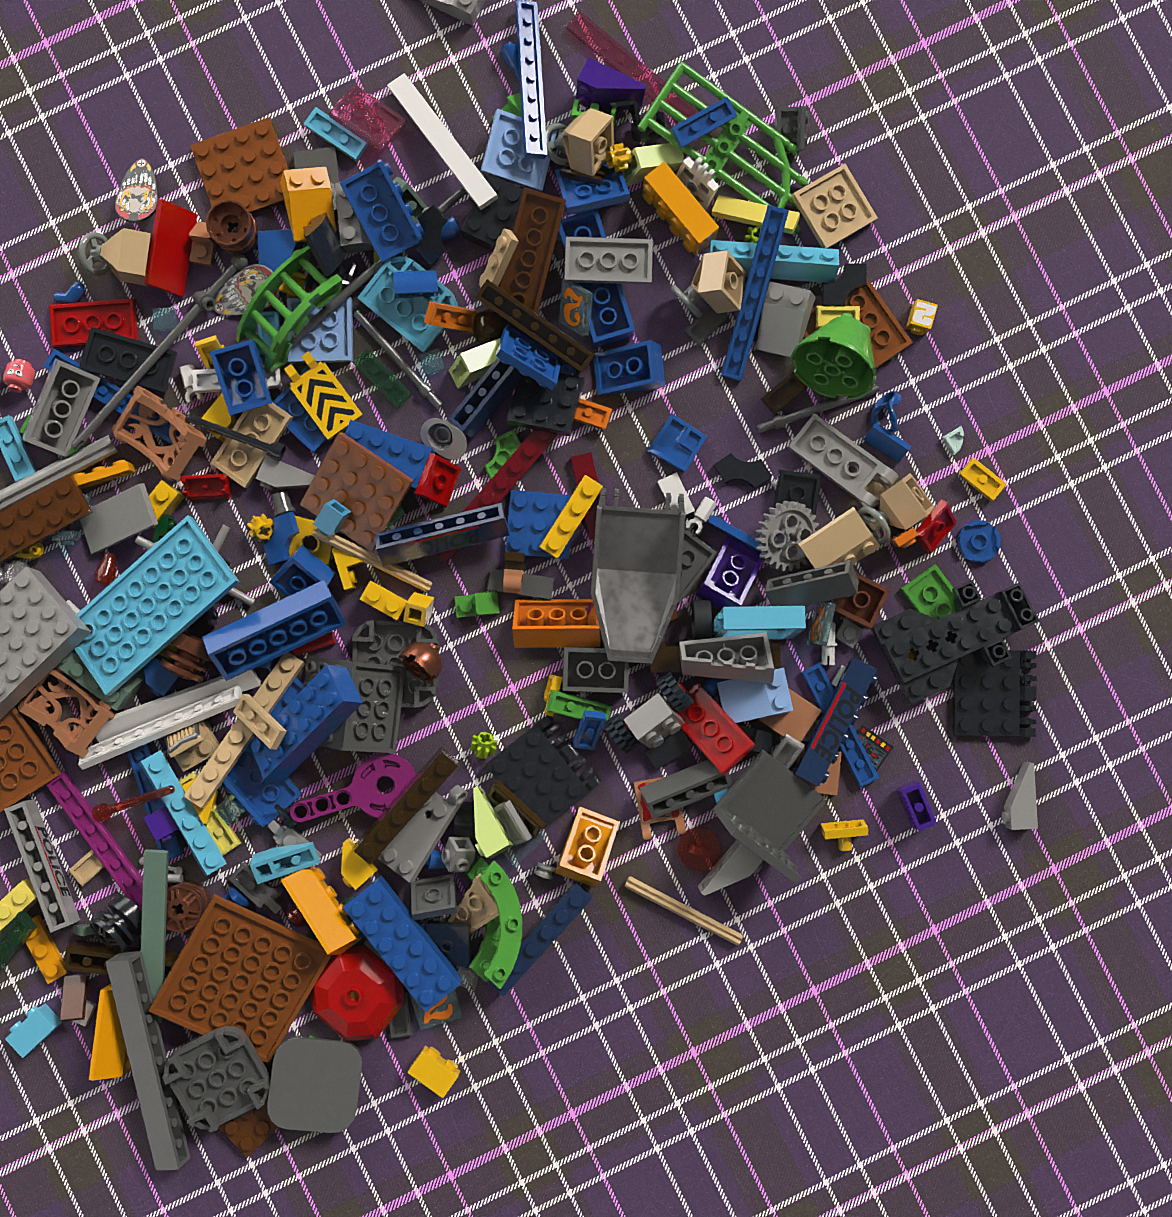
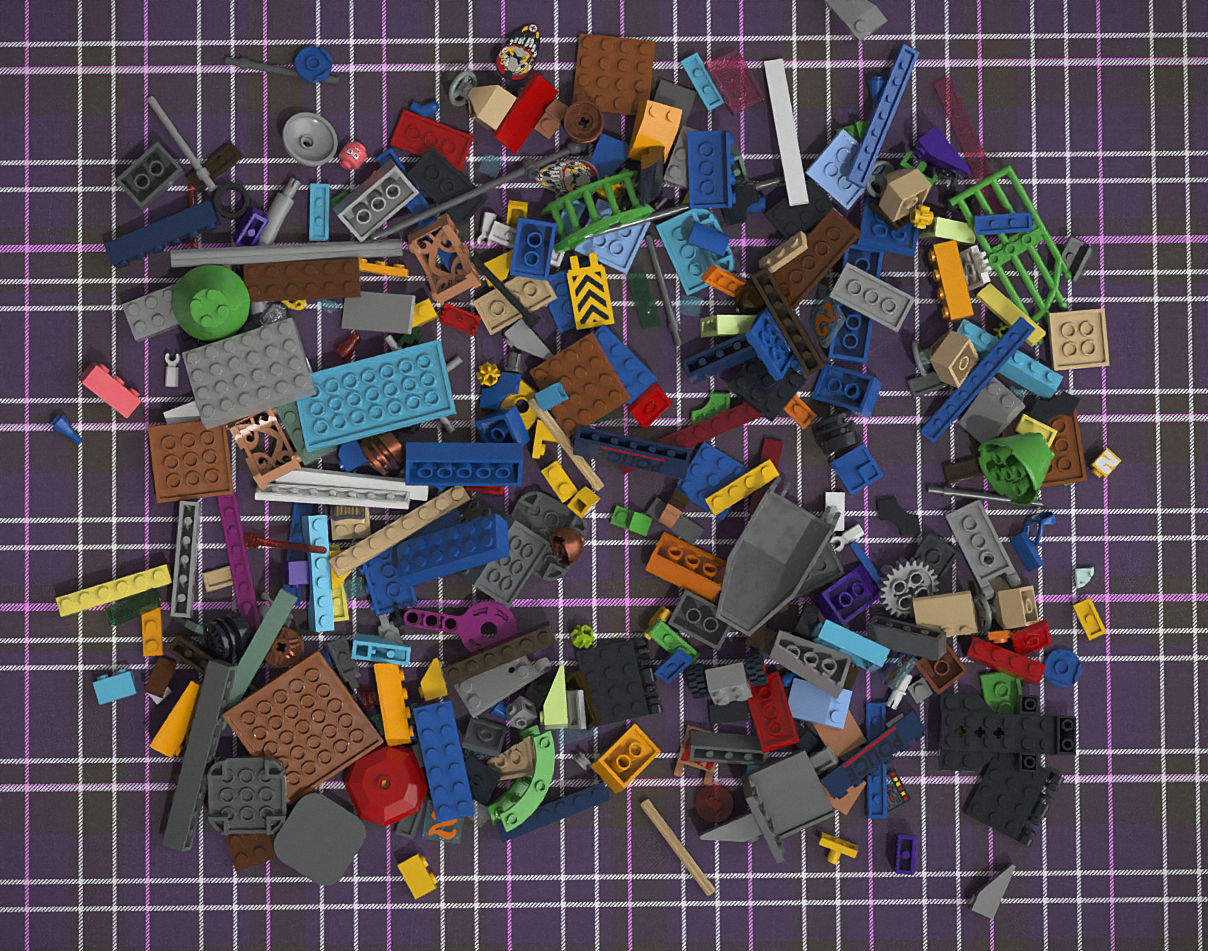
camera: 25 degrees right, 0 degrees up
(259, 721) = (417, 530): tan plate -> none
(444, 438) = (670, 374): light grey piece -> none
(640, 415) = (837, 432): none -> black wheel
(922, 562) = (1005, 661): none -> red brick

